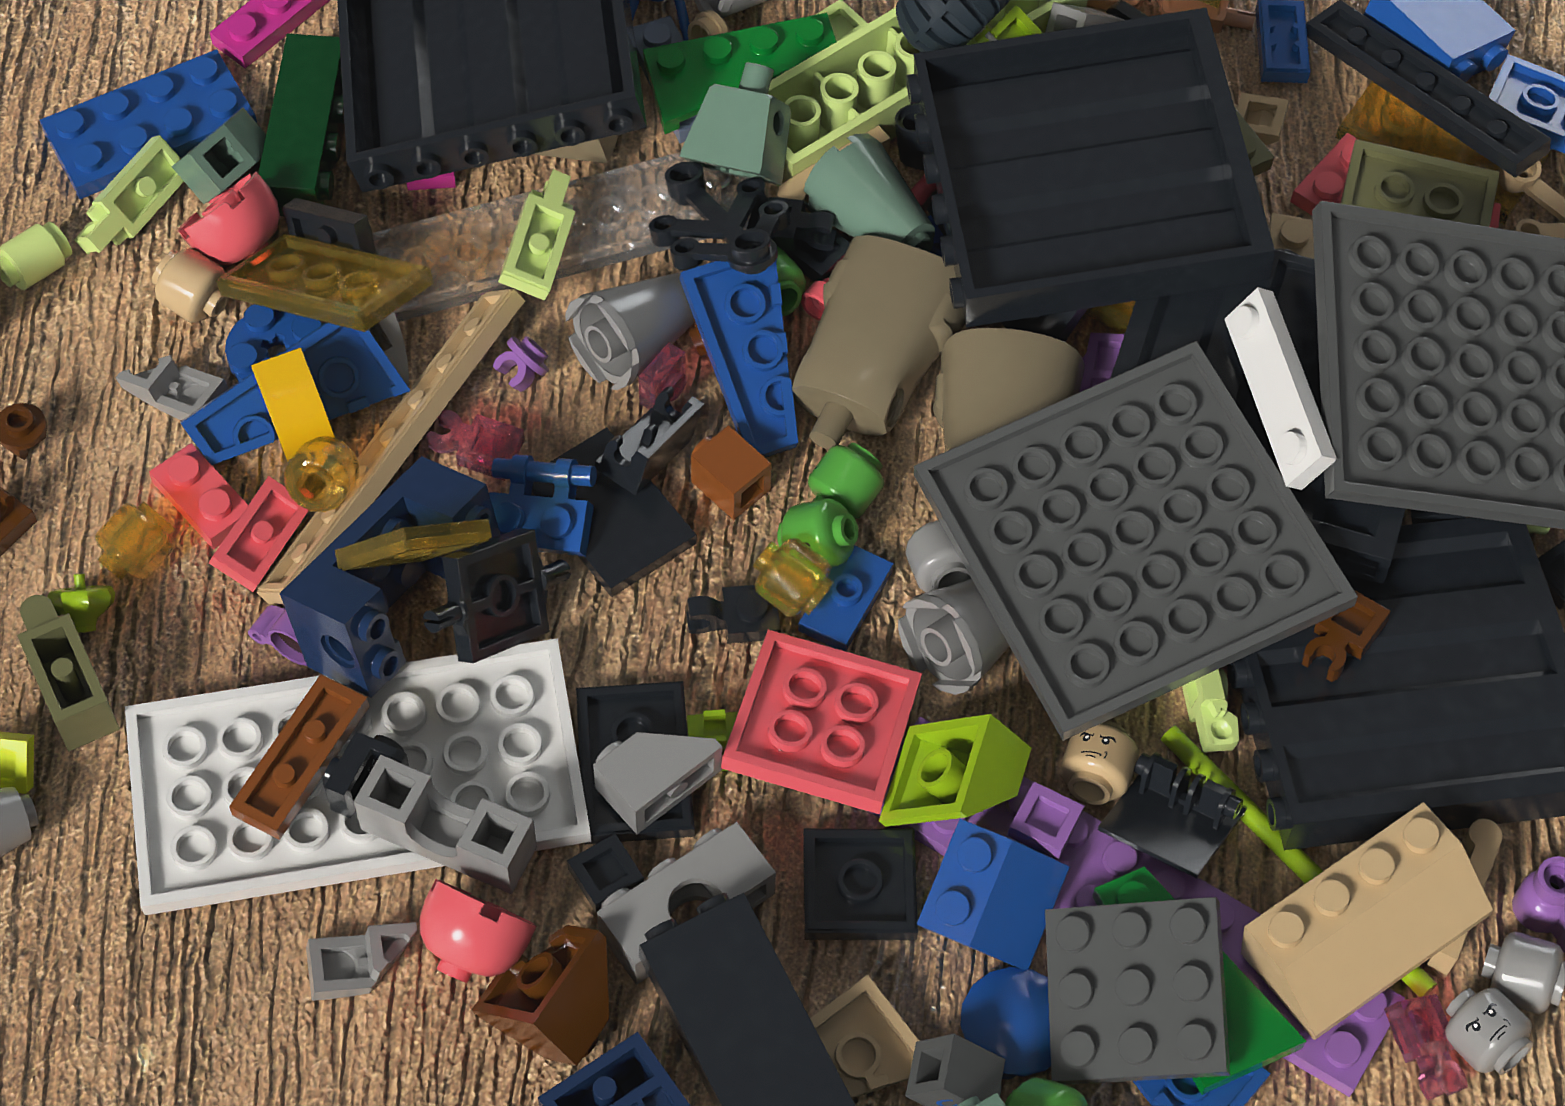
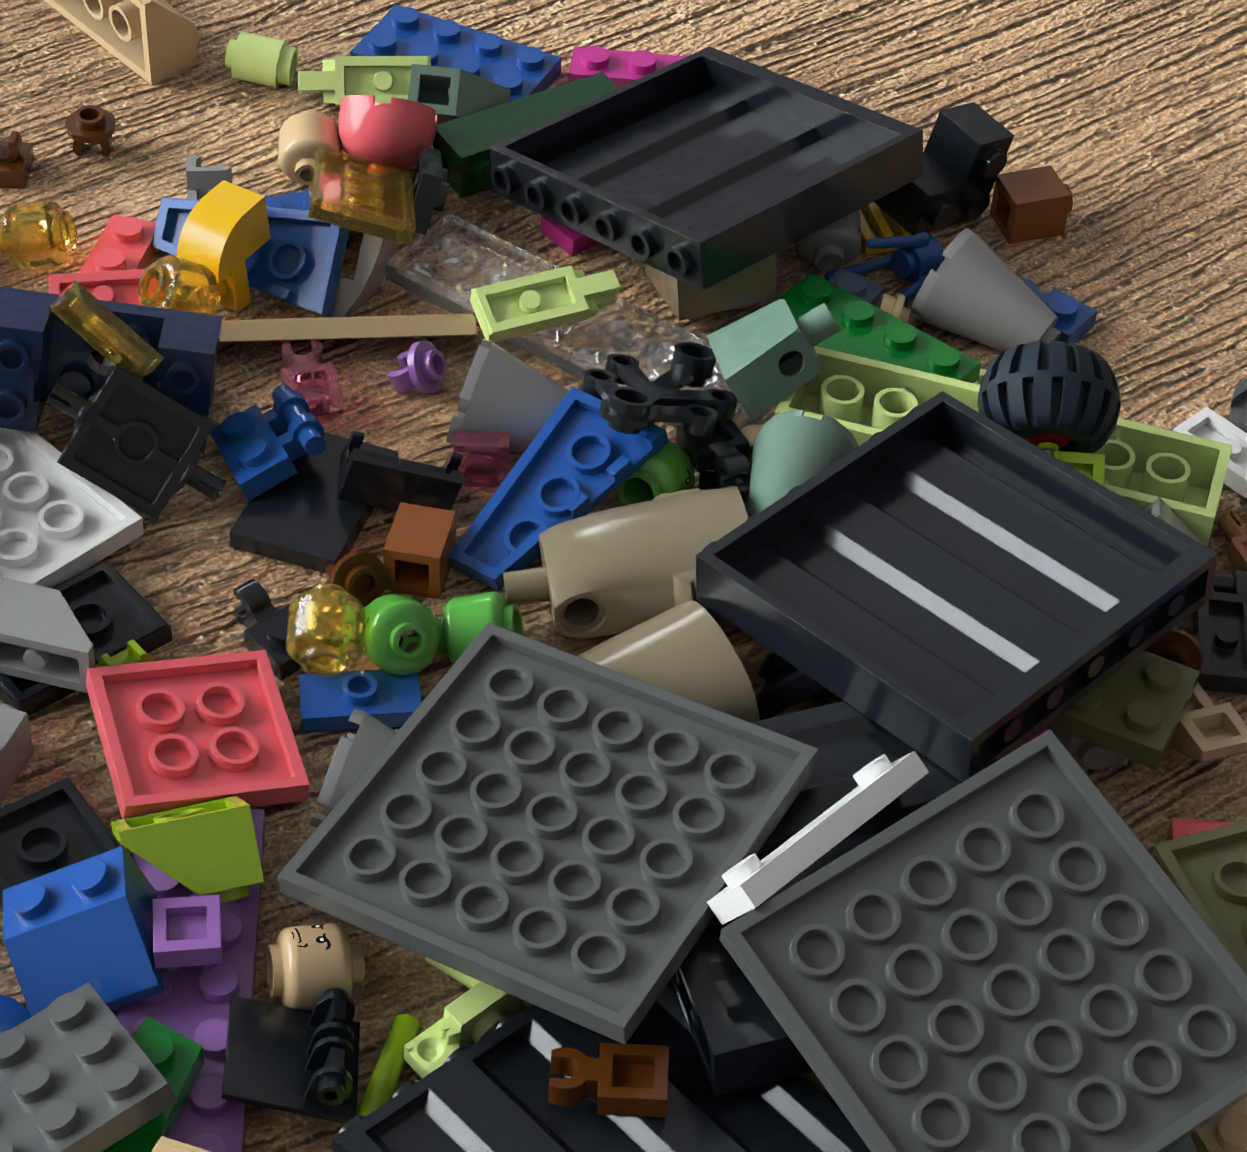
camera: 55 degrees right, 15 degrees down
(731, 530) = (359, 575): none -> reddish brown plate

